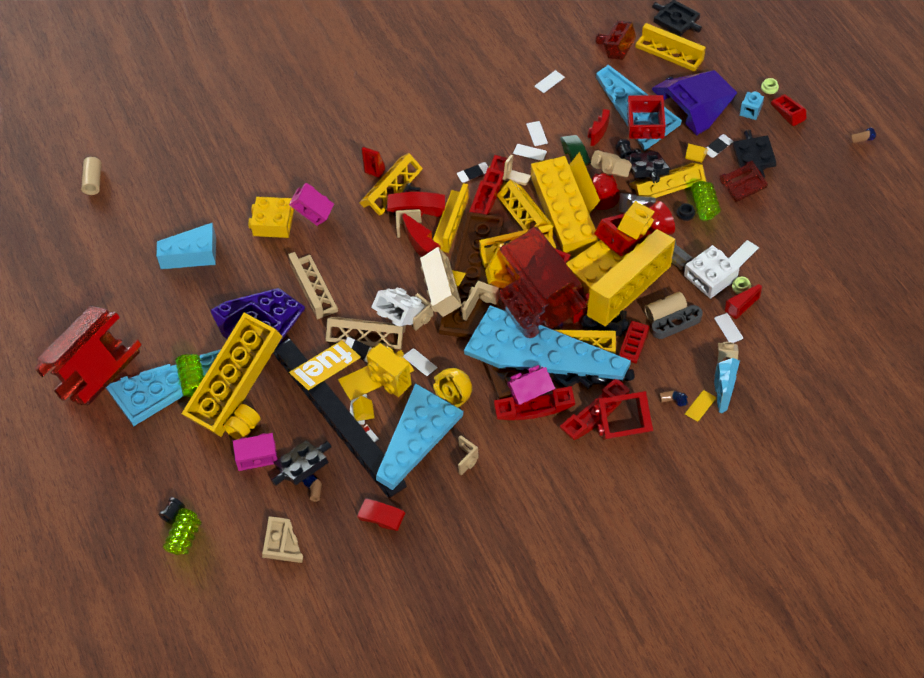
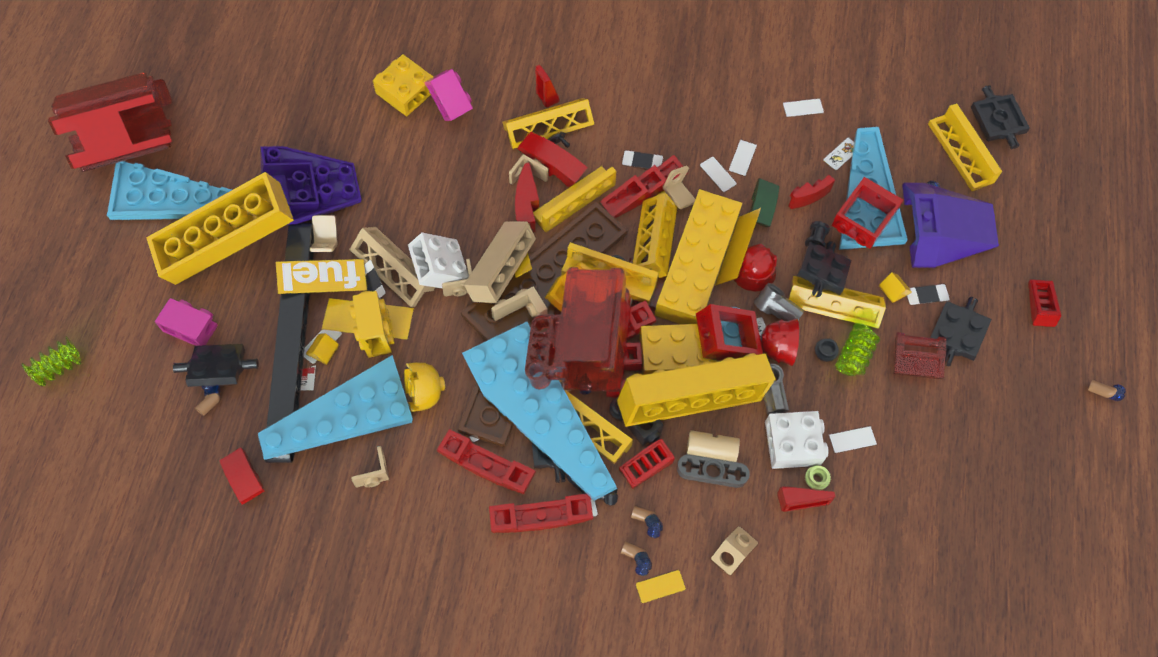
camera: 30 degrees right, 10 degrees up
(171, 510) = (69, 329): black bush -> none
(188, 248) = (305, 69): medium azure wedge -> none
(189, 373) = (188, 199): clear neon green piece -> none
(241, 423) = (198, 284): yellow wheel -> none
(281, 541) = (131, 435): tan wing -> none
(301, 338) = (324, 233): none -> tan bracket
(309, 287) = (377, 178): tan fence -> none
(420, 362) = (419, 334): white sticker -> none
(530, 384) = (493, 440): dark pink brick -> none
(597, 96) = (840, 154): none -> white sticker
(611, 164) = (785, 243): tan brick -> none
(618, 40) = (911, 106): clear red brick -> none
(636, 220) = (748, 329): yellow brick -> none
(643, 411) = (589, 532): red window -> none
(662, 371) = (650, 518): none -> arm
(724, 382) = (704, 581): medium azure slope -> none
(728, 328) = (765, 517): white sticker -> none
(753, 101) = (1003, 271): medium azure brick -> none
(770, 86) = (1045, 257): yellowish green plate -> none

